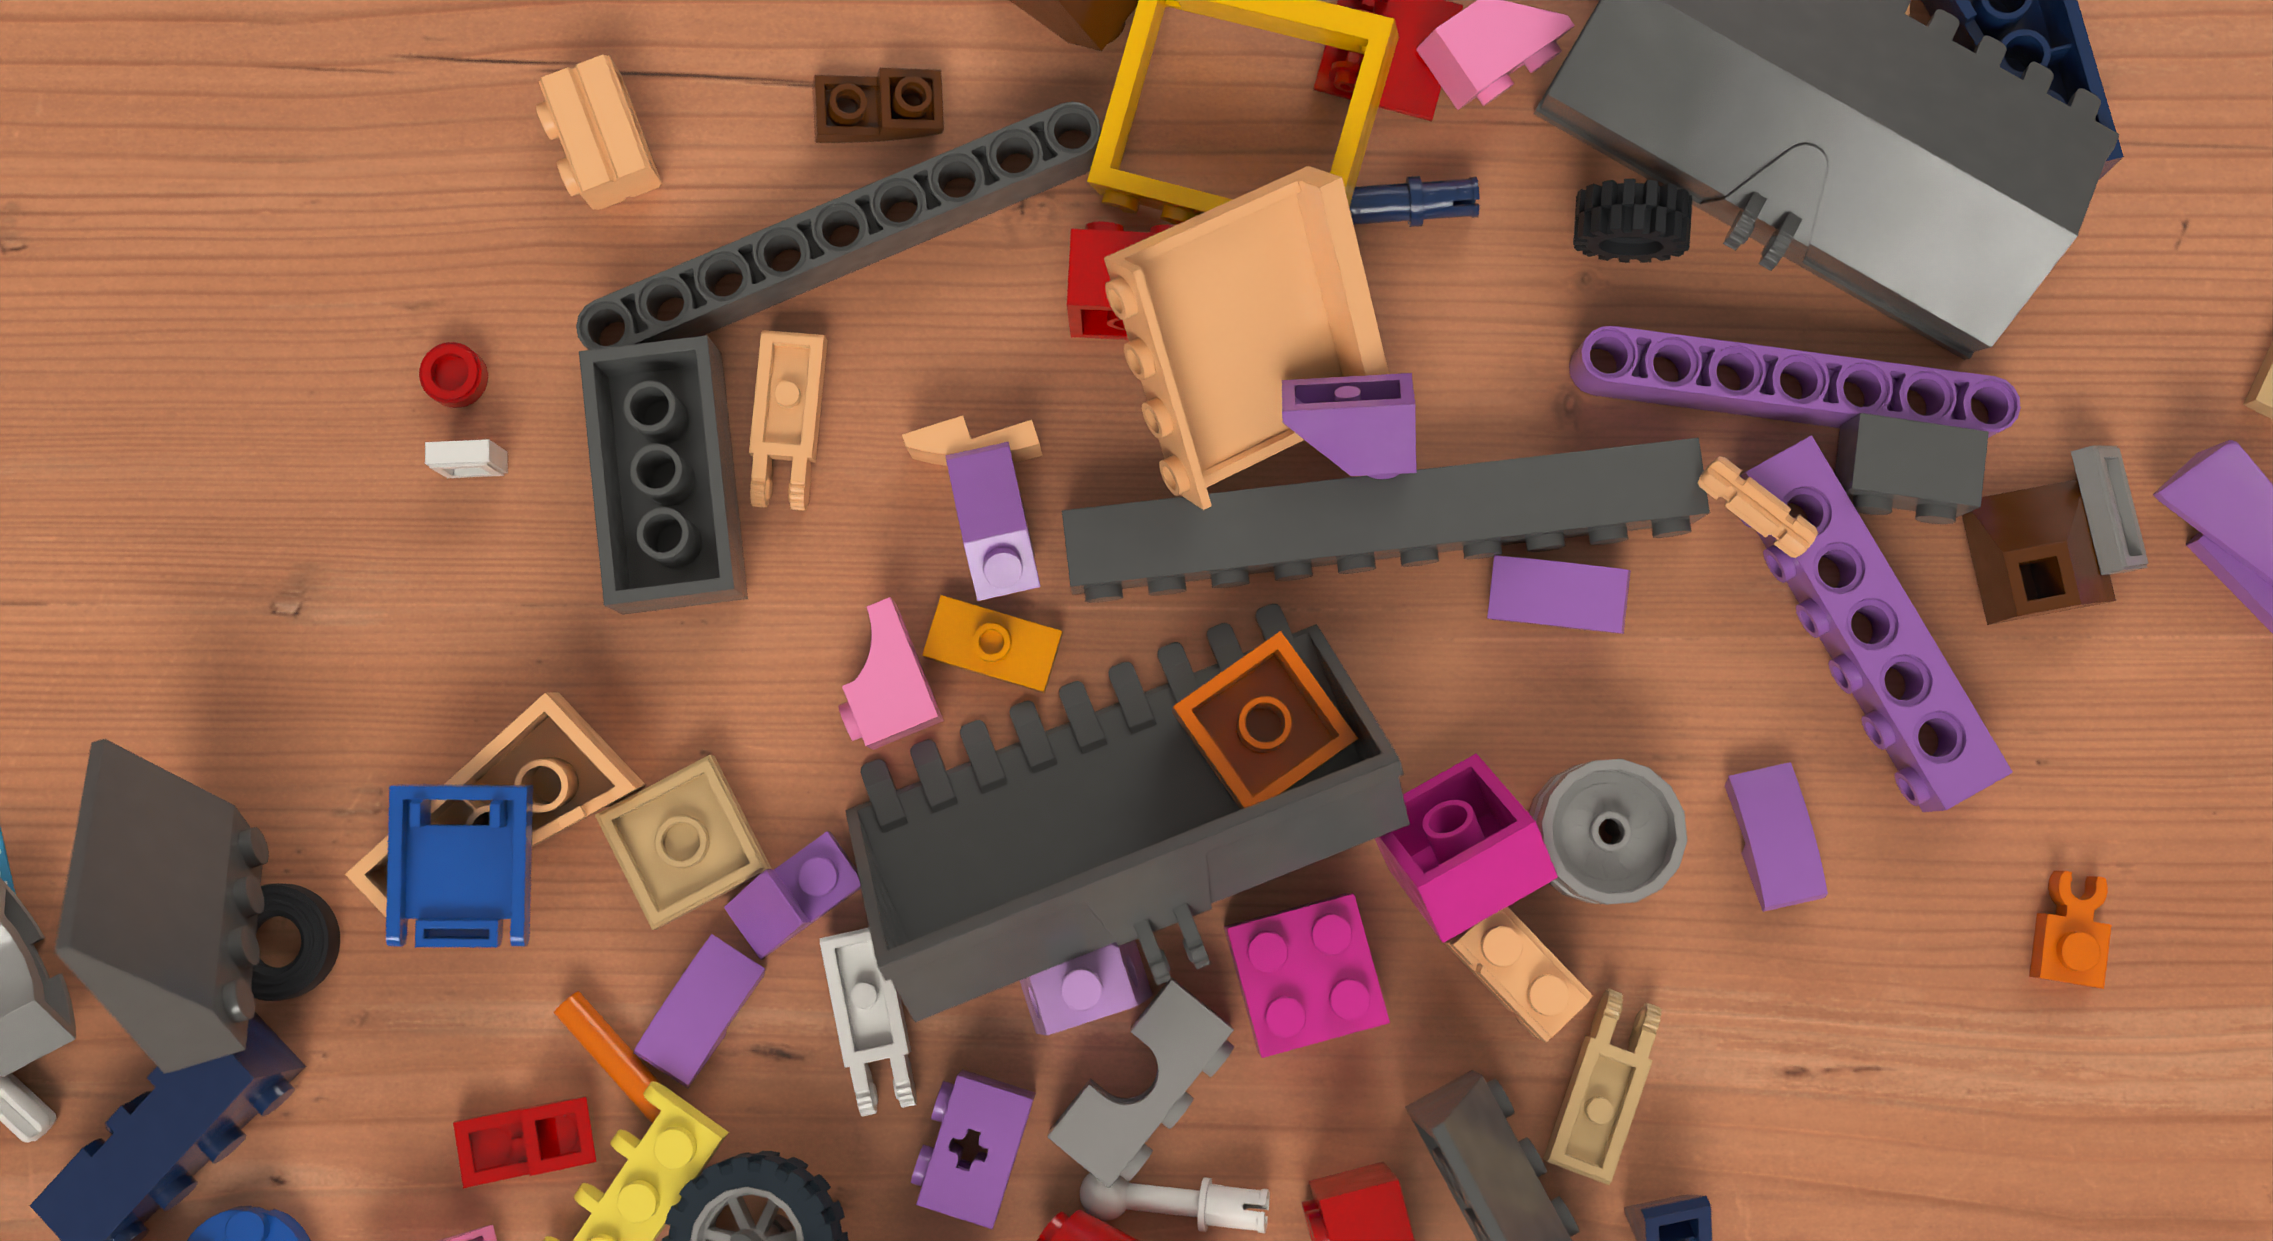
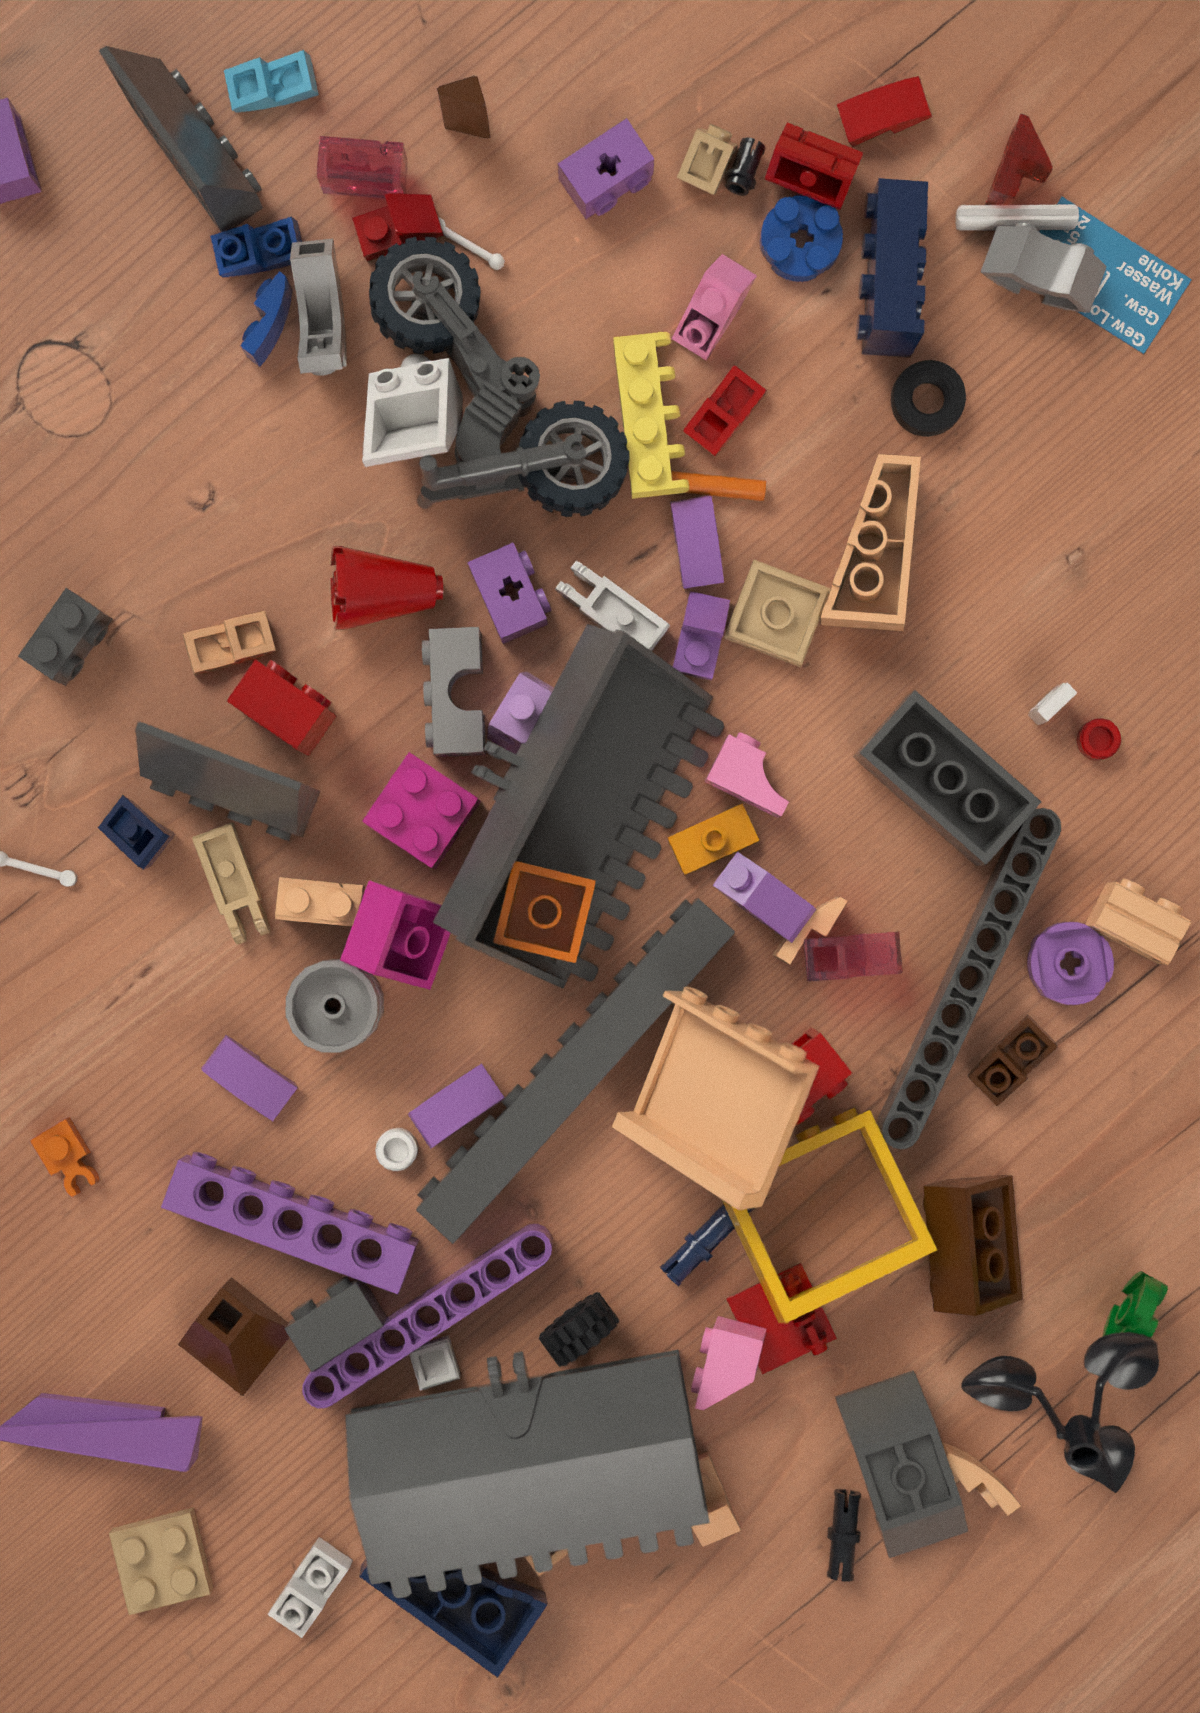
camera: 135 degrees right, 5 degrees up
(163, 908) = (986, 369): dark grey slope -> none
(459, 875) = (865, 503): blue container -> none
(710, 120) = (1088, 978): none -> medium lavender plate
(786, 412) = (916, 864): light nougat hinge -> none
(951, 371) = (853, 956): none -> clear pink brick
(1211, 1204) = (374, 663): white pin -> none
(1356, 421) = (629, 1101): medium lavender slope -> none
(1669, 606) = (396, 1149): none -> white tile
(1757, 507) = (394, 1231): light nougat axle -> none
(1827, 325) = (435, 1363): none -> white tile
(2109, 509) = (218, 1389): light grey tile -> none
(2179, 203) = (310, 1587): none -> white slope

